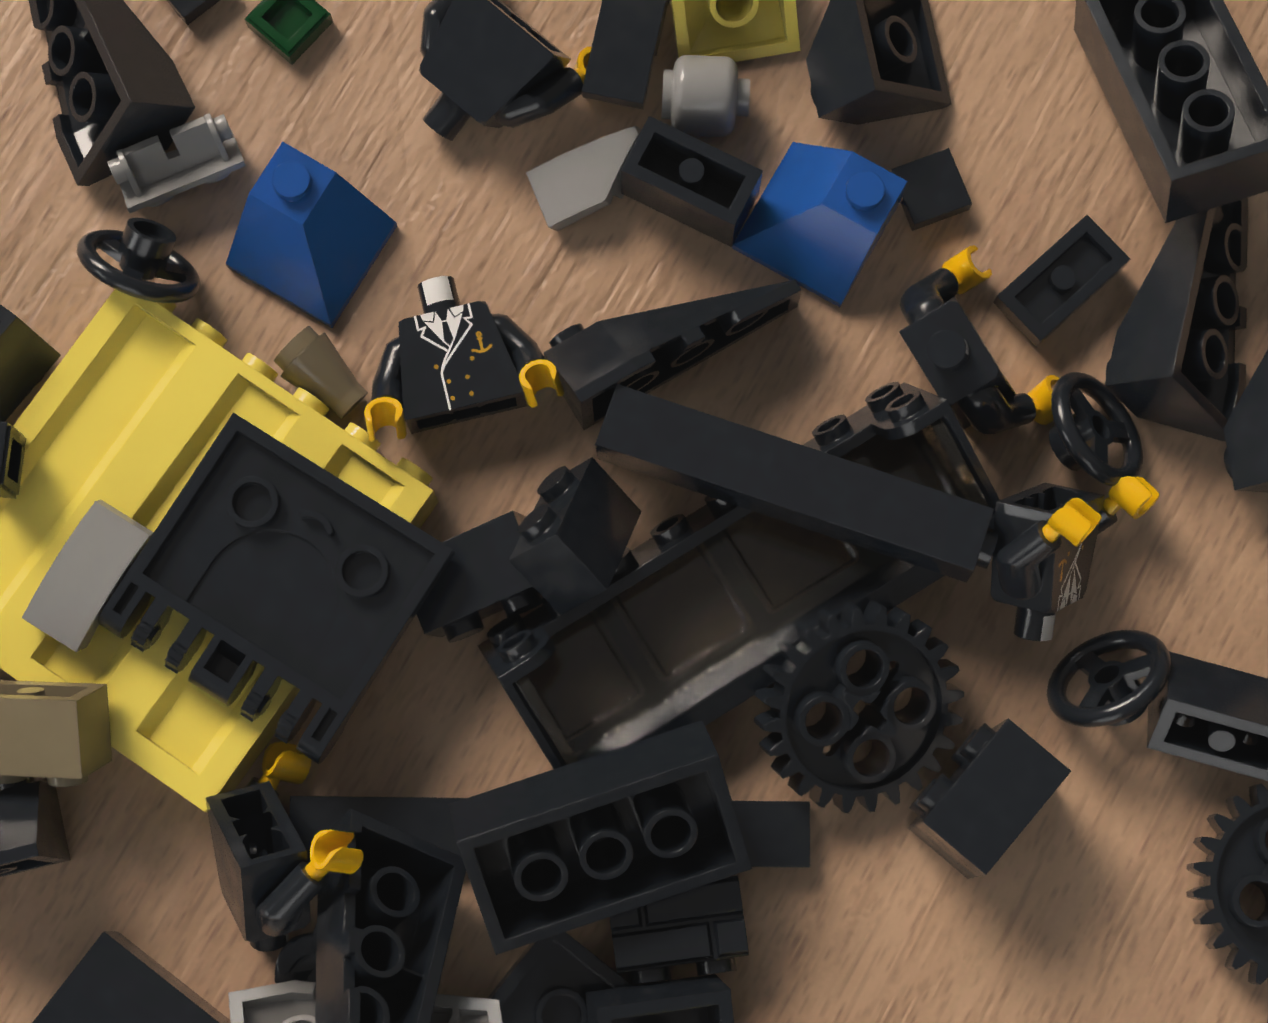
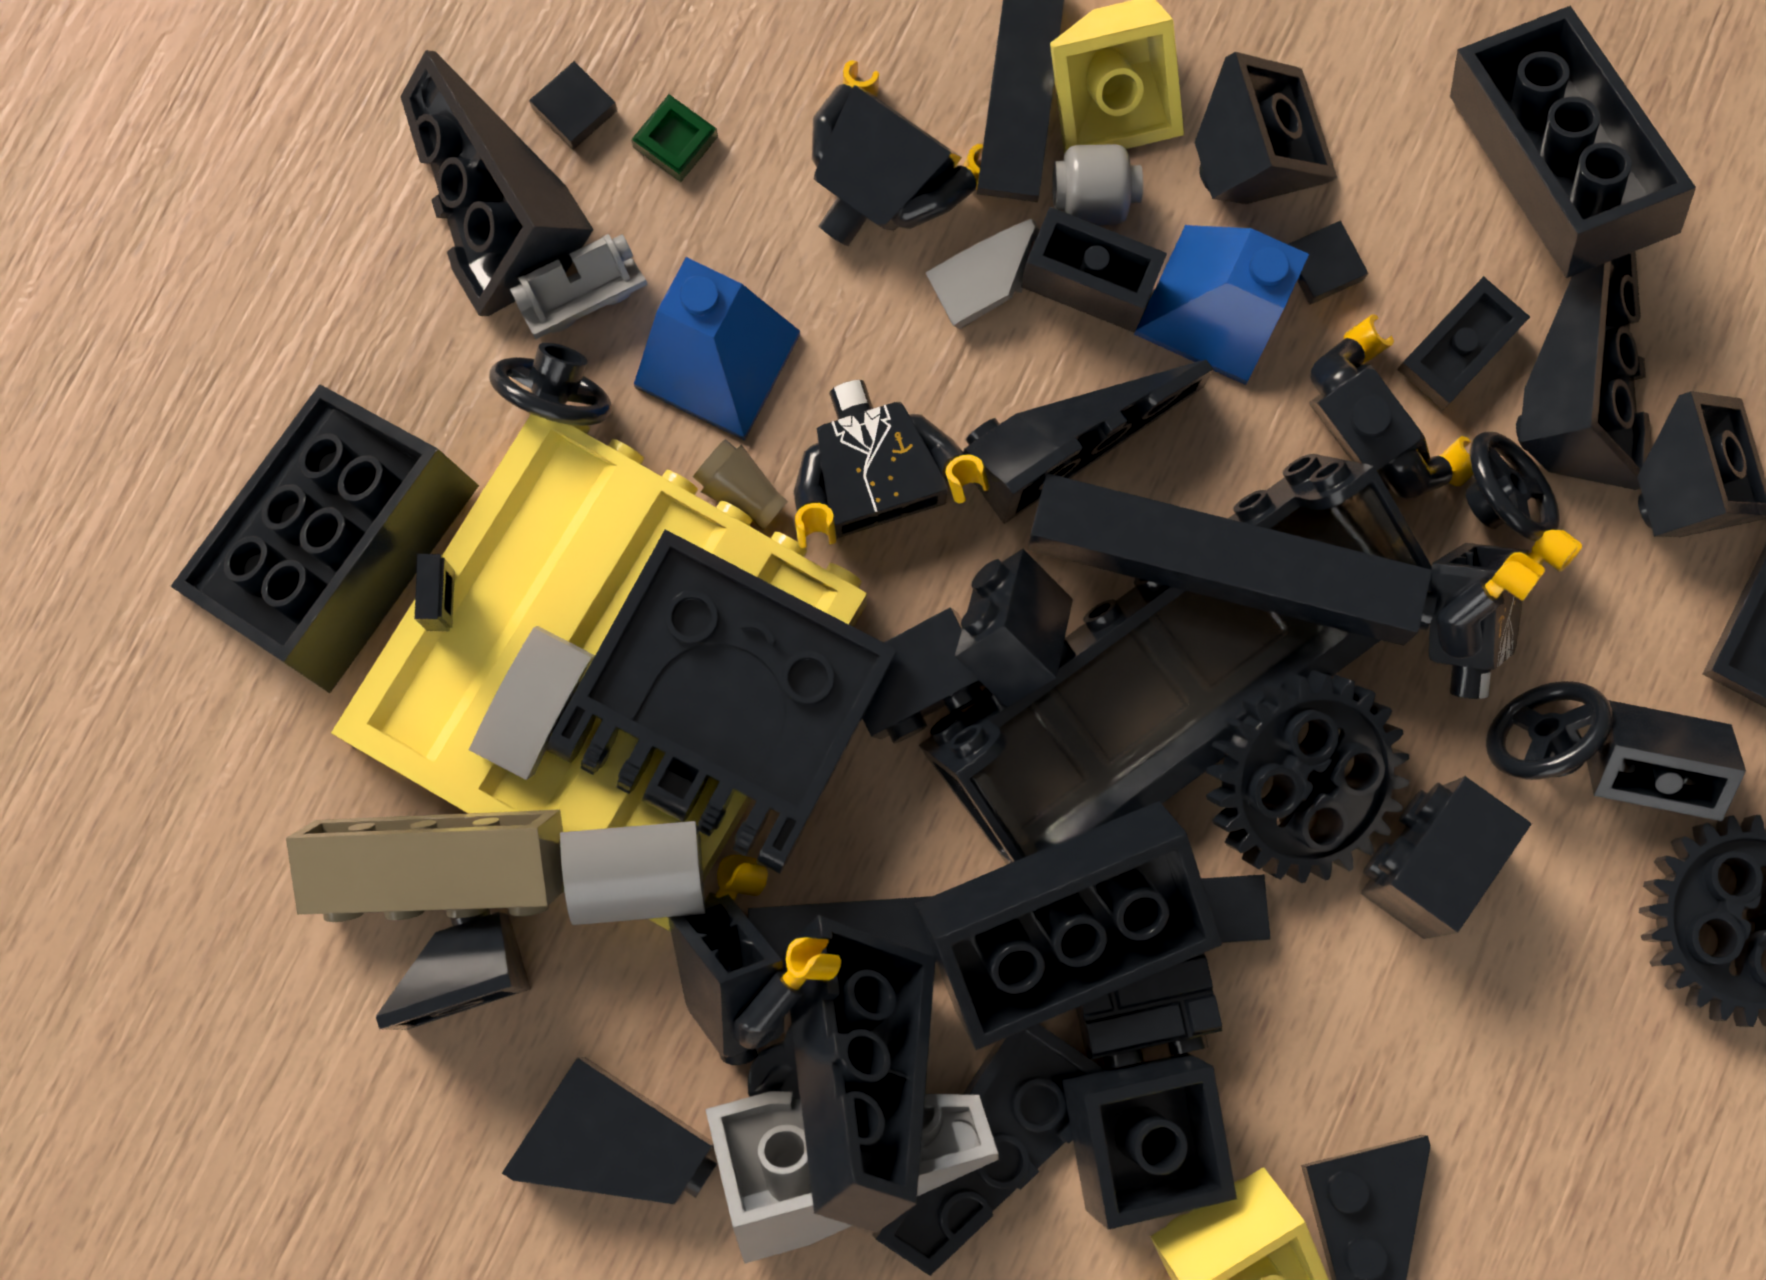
camera: 10 degrees left, 0 degrees up
(171, 752) = (632, 872): none -> light grey brick

